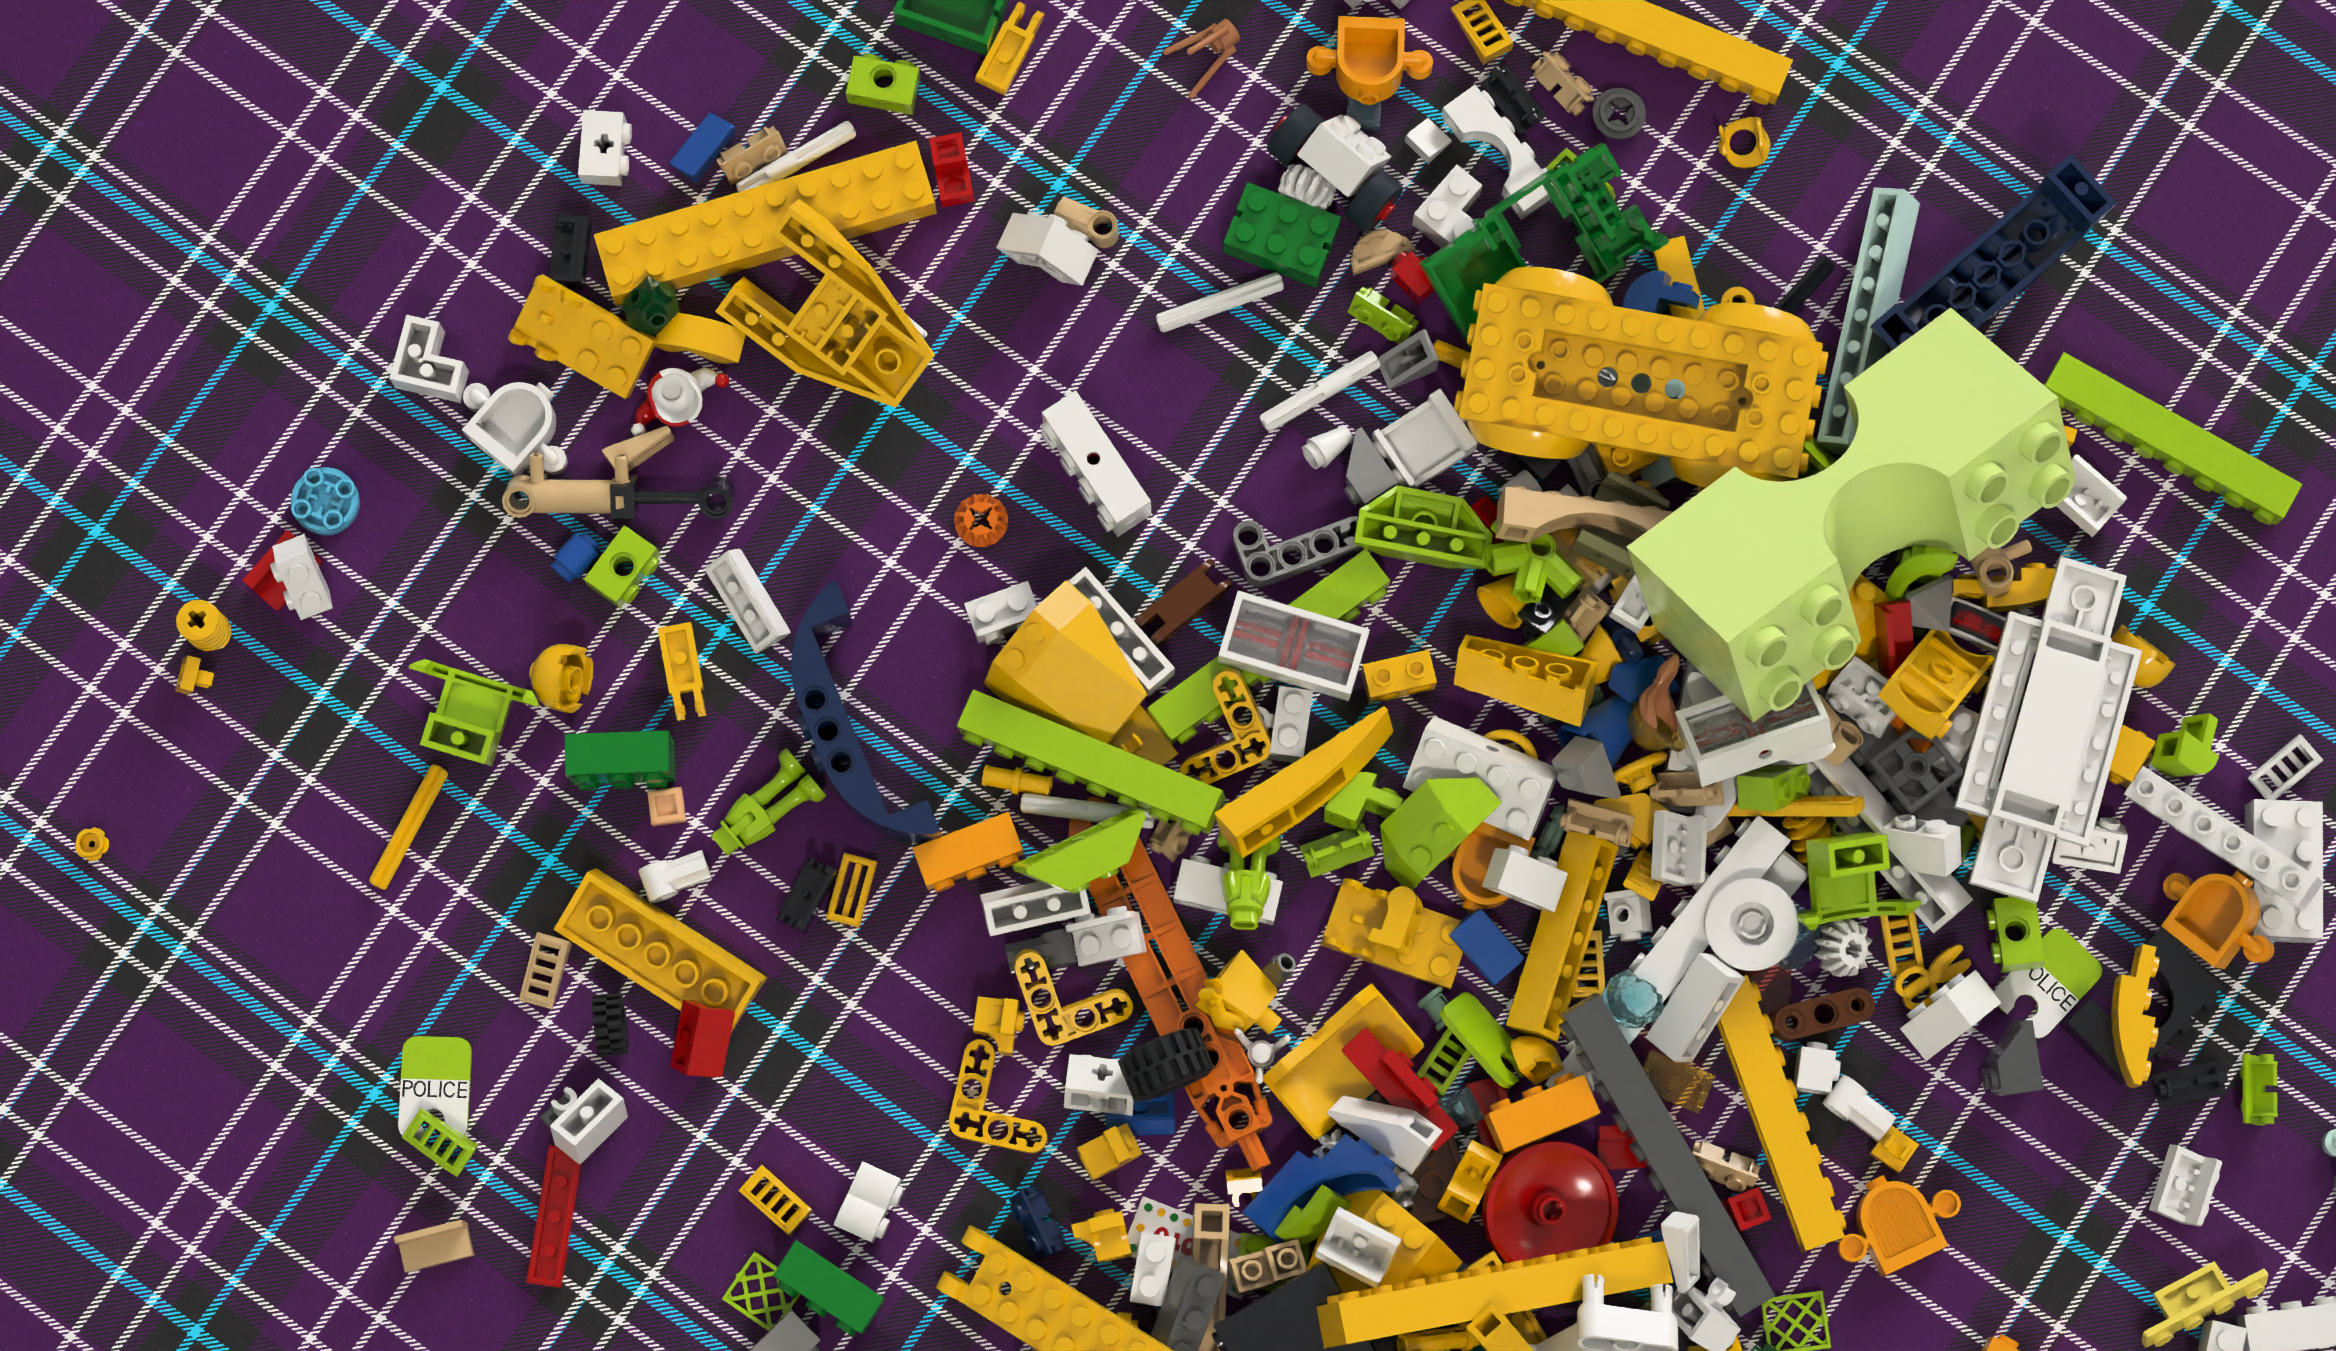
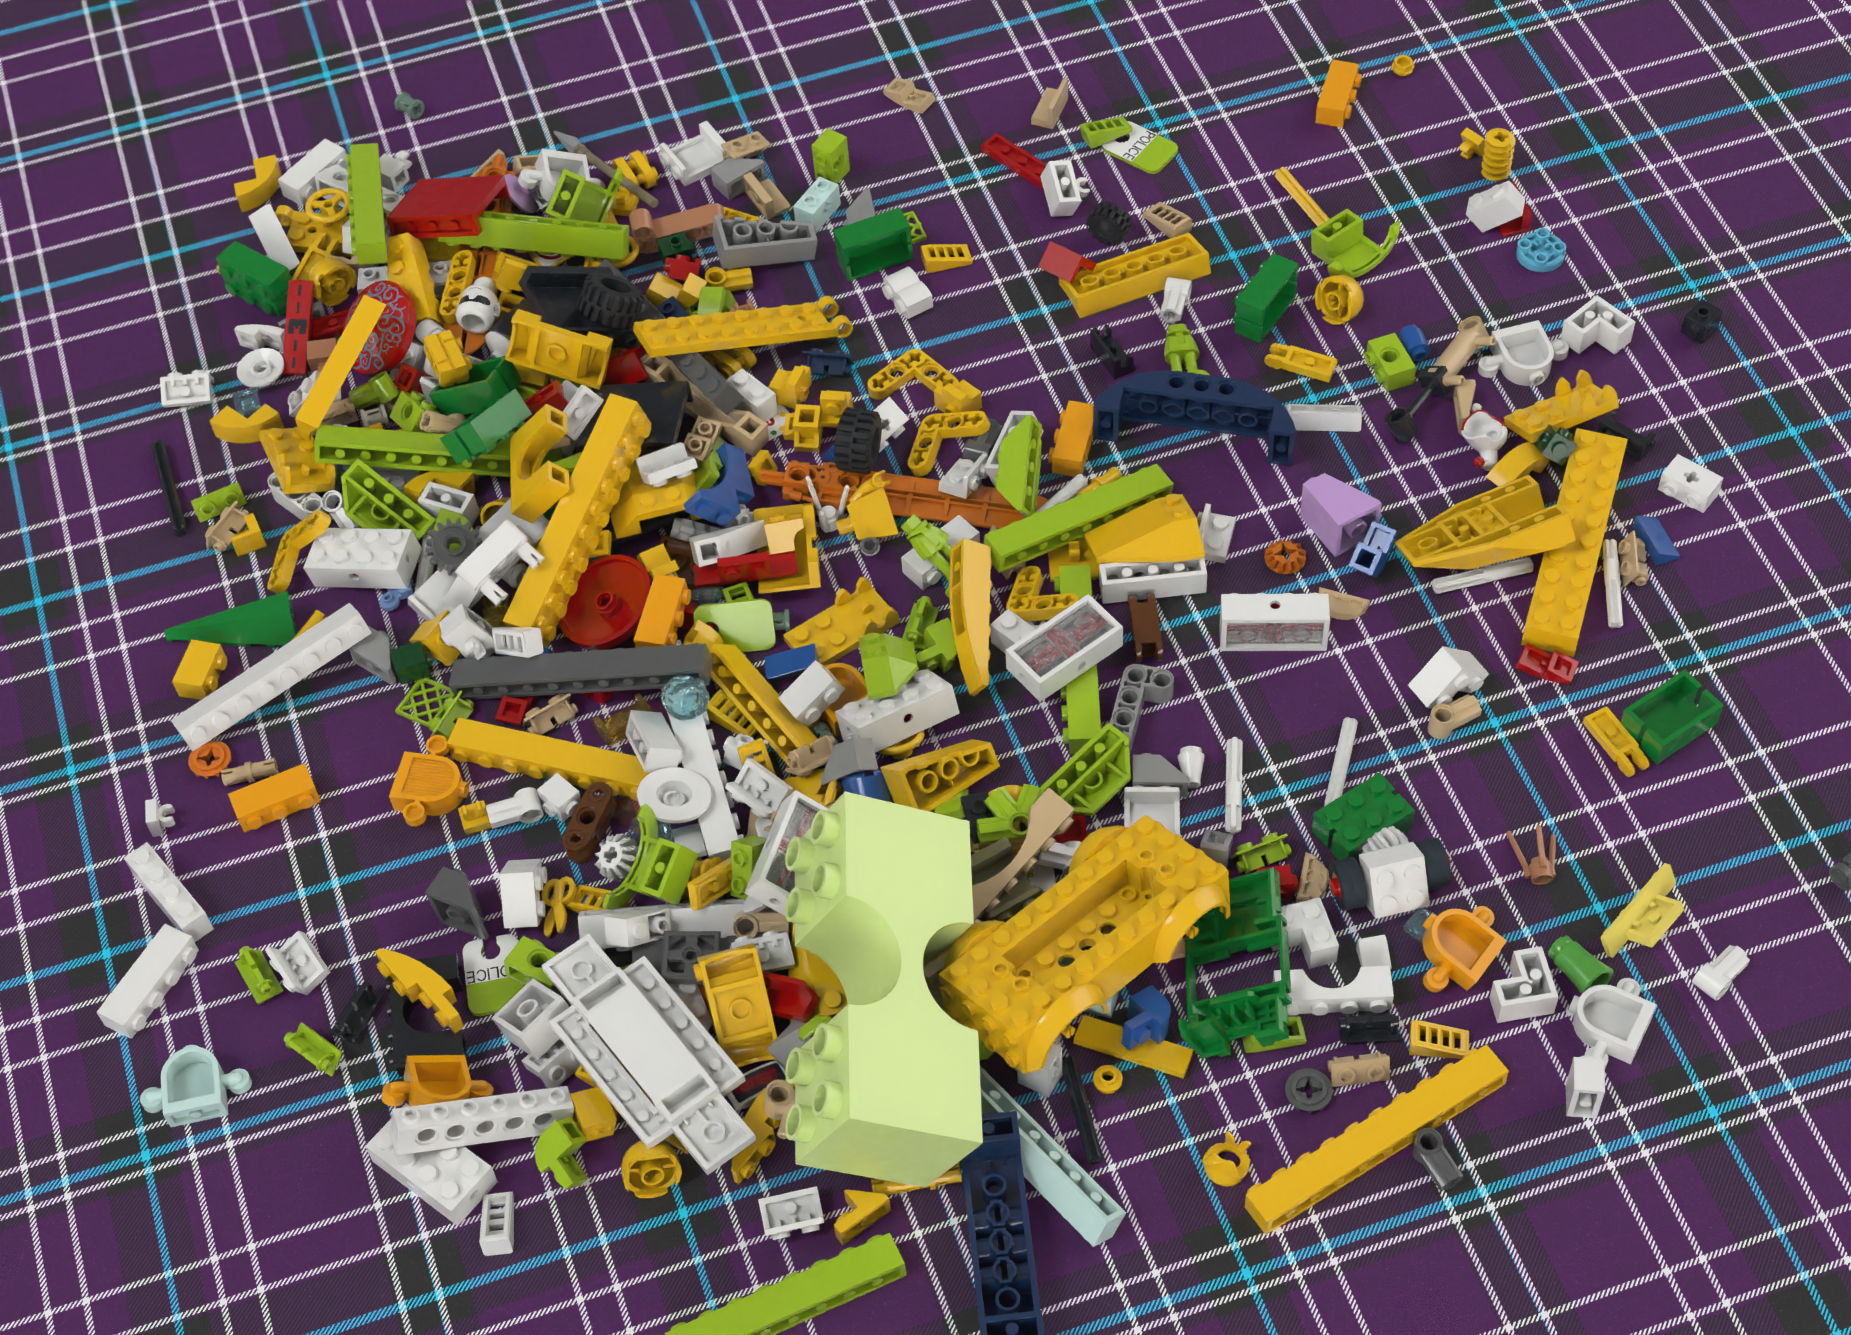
camera: 130 degrees right, 25 degrees down
(196, 891) = (1338, 93): none -> light orange brick
(339, 258) = (1701, 321): none -> black brick
(666, 806) = (1221, 318): light nougat tile -> none
(844, 918) = (1094, 379): yellow tile -> none
(897, 97) = (1636, 654): lime brick -> none
(902, 485) = (1338, 512): none -> lavender slope
(926, 423) = (1373, 553): none -> brick
(1009, 423) = (1345, 606): none -> tan tile
(1155, 1174) = (804, 428): none -> yellow brick
(1324, 1080) = (780, 531): none -> yellow brick
(1398, 676) = (1002, 715): yellow brick -> none
(1399, 923) = (843, 620): yellow leg -> none
(1818, 1271) = (455, 709): none -> lime hinge
(2080, 884) = (527, 1018): none -> white brick
(2196, 1297) = (229, 923): light yellow bracket -> none
(2222, 1221) = (257, 974): none -> lime hinge

